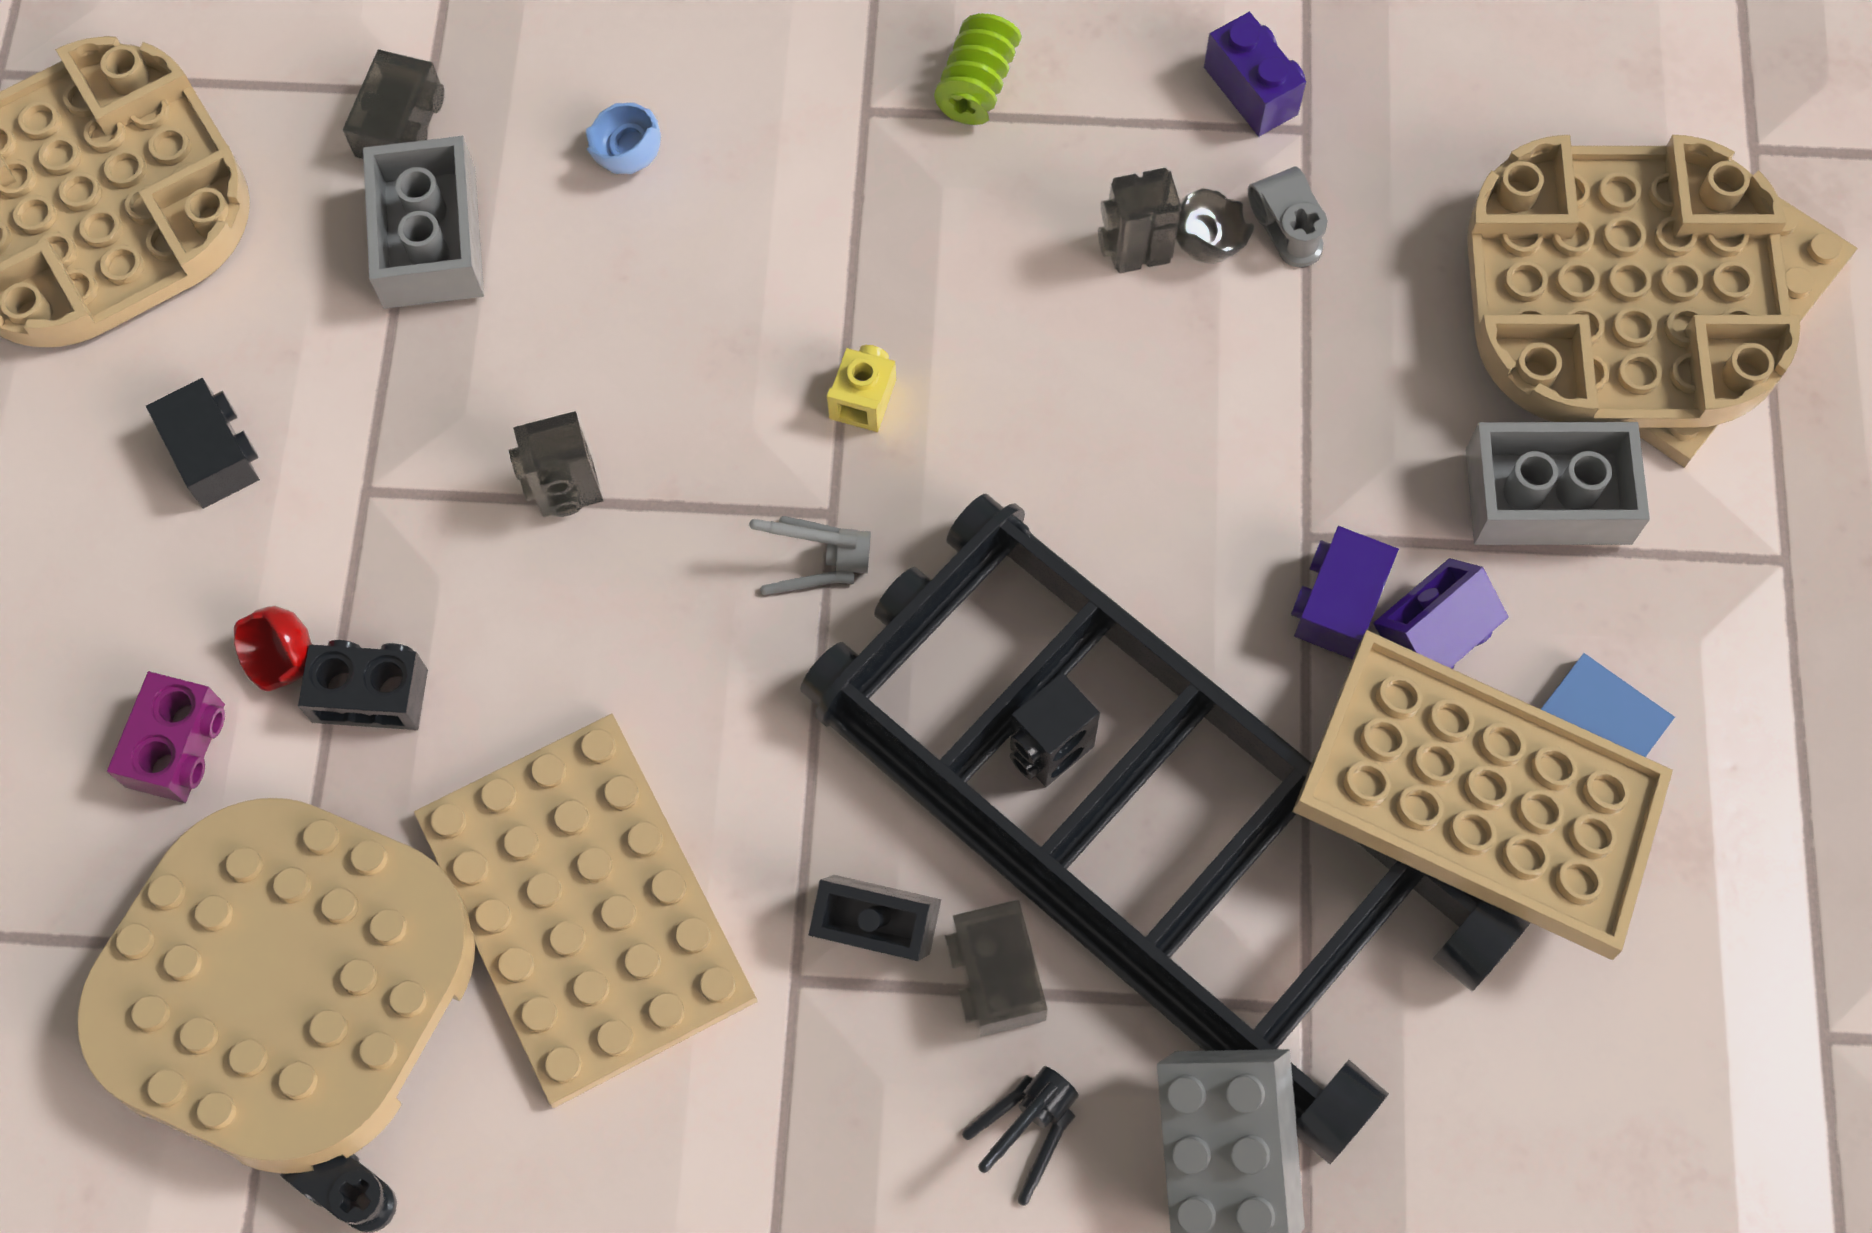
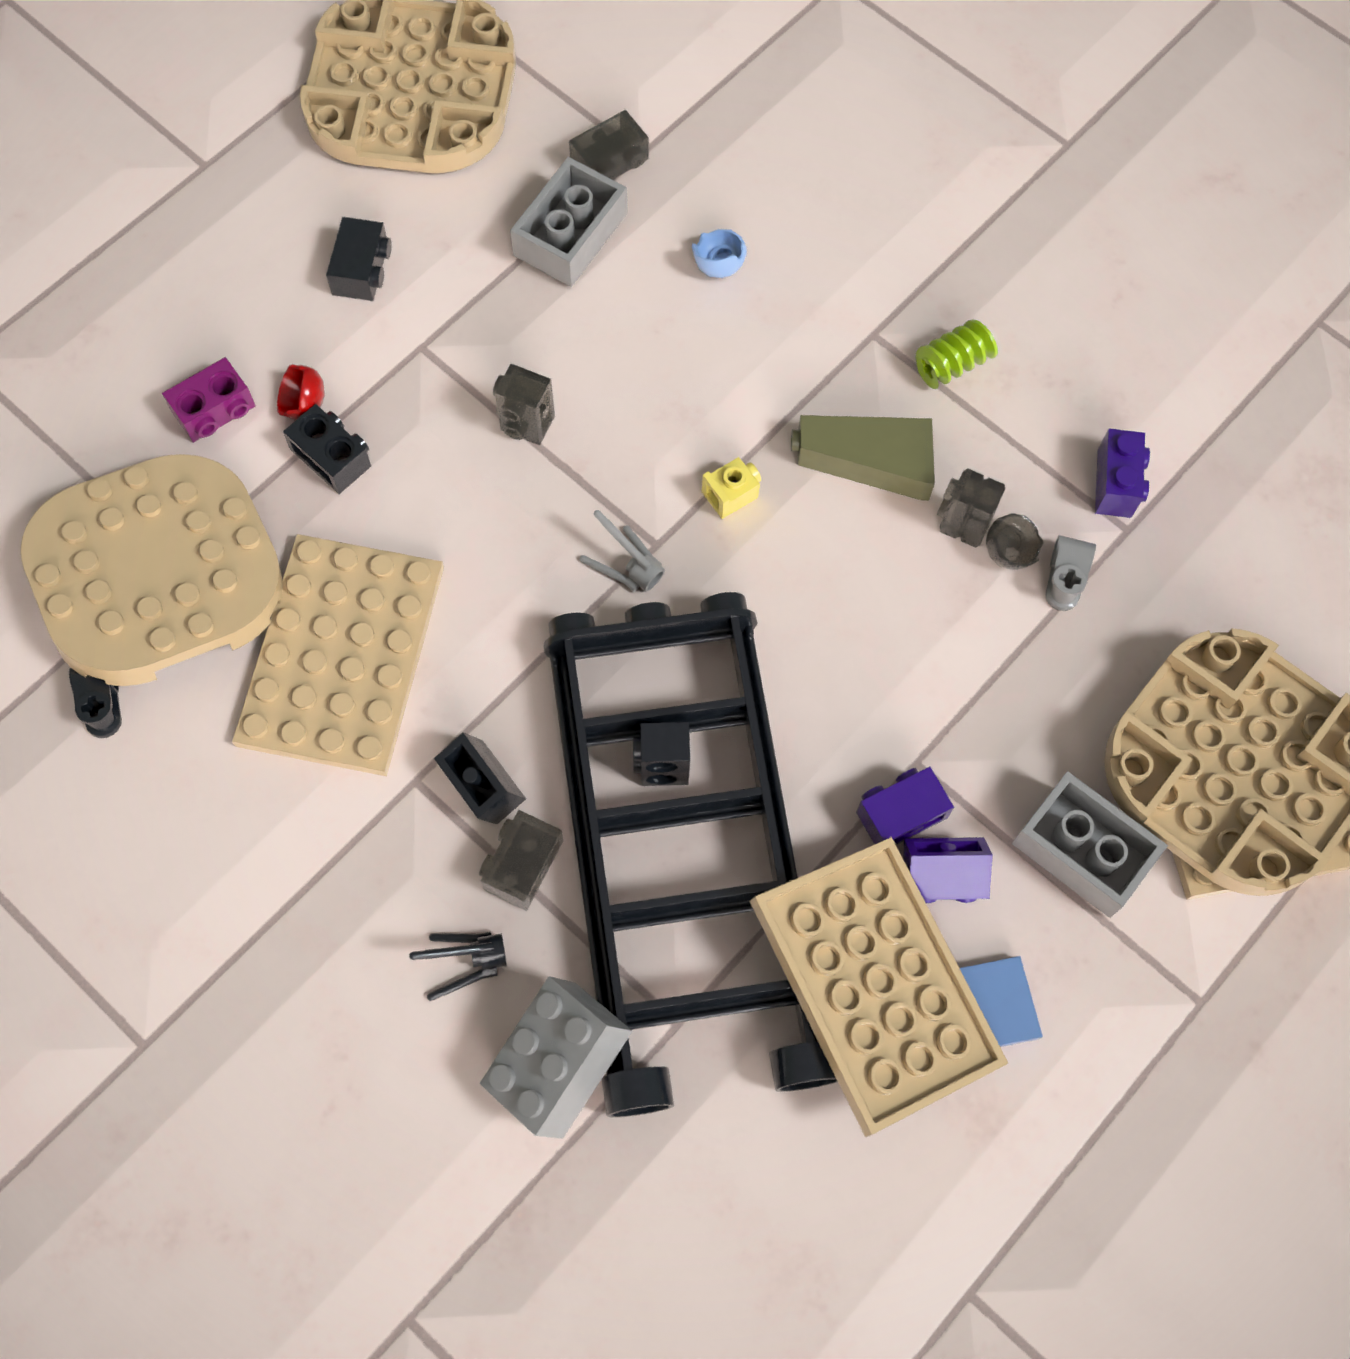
camera: 35 degrees right, 0 degrees up
(978, 238) = (870, 451): none -> olive slope

